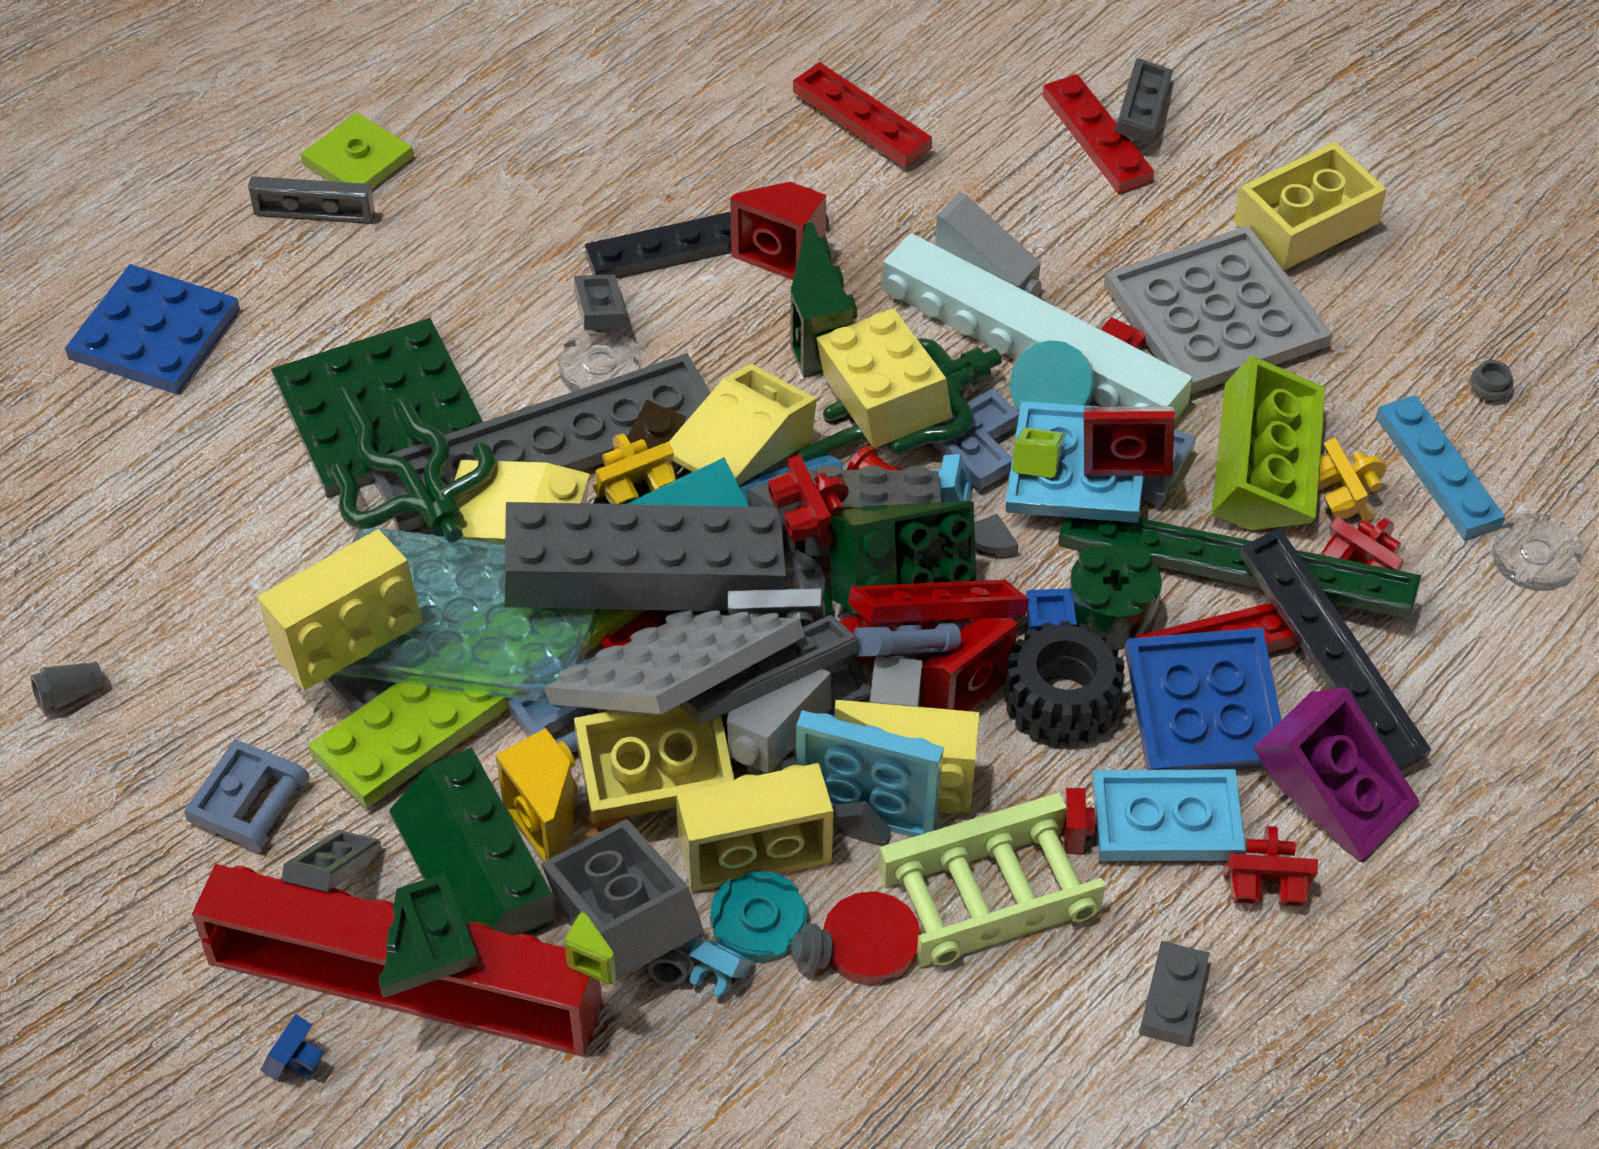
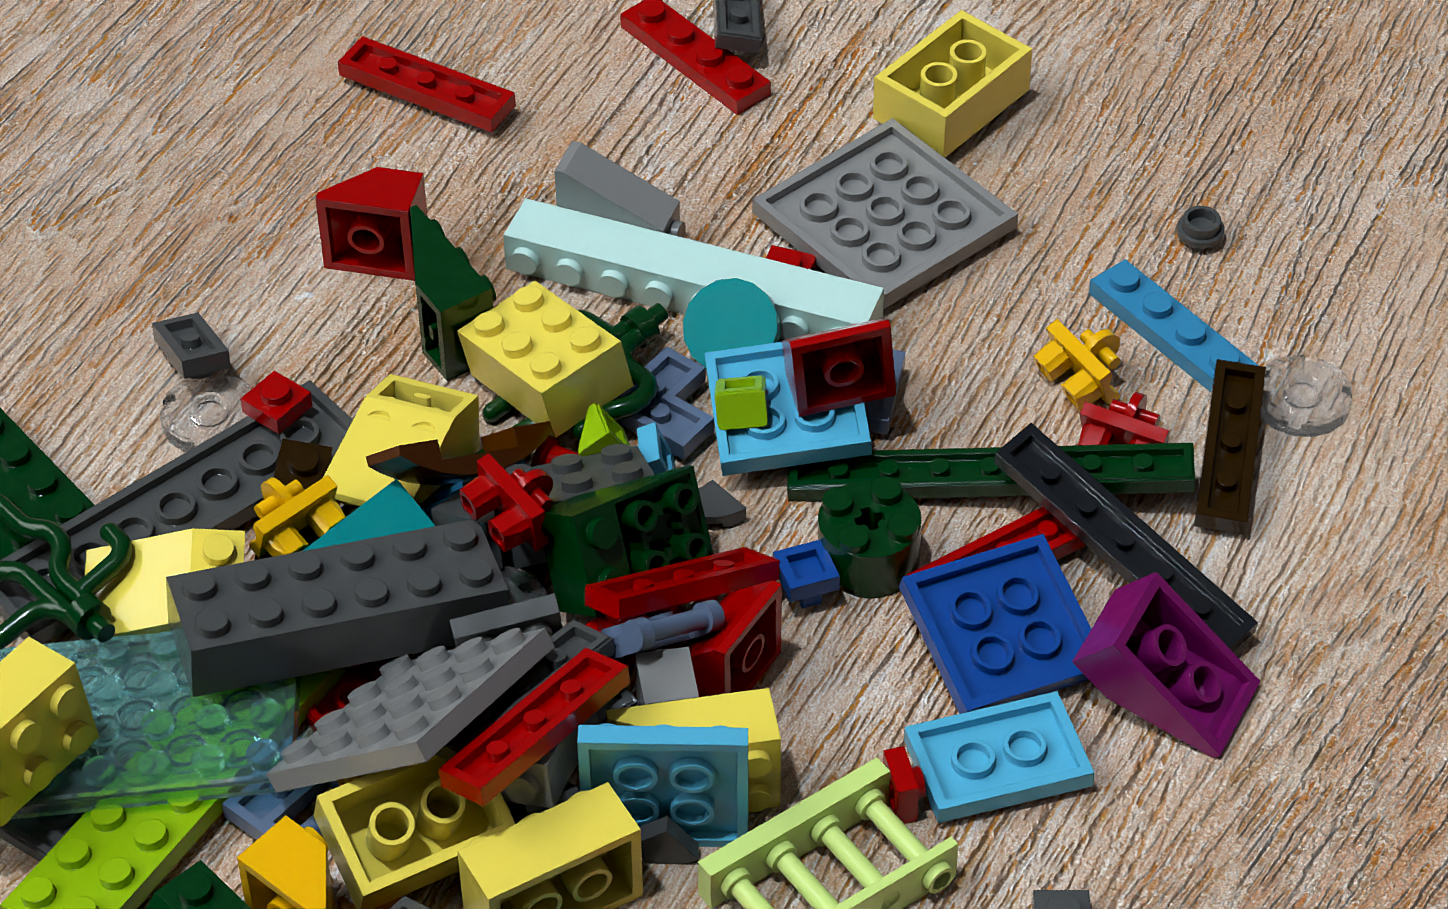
camera: 15 degrees left, 5 degrees down
(653, 366) = (276, 402): none -> red plate
(662, 246) = (242, 271): black plate -> none
(748, 448) = (424, 465): none -> reddish brown slope
(765, 702) = (534, 726): none -> red plate
(912, 451) = (600, 431): none -> lime slope
(1058, 712) = (844, 674): black tyre -> none
(1249, 870) = (1123, 782): red hips -> none
(1268, 448) = (987, 346): lime slope -> none
(1455, 585) = (1230, 447): none -> dark brown plate

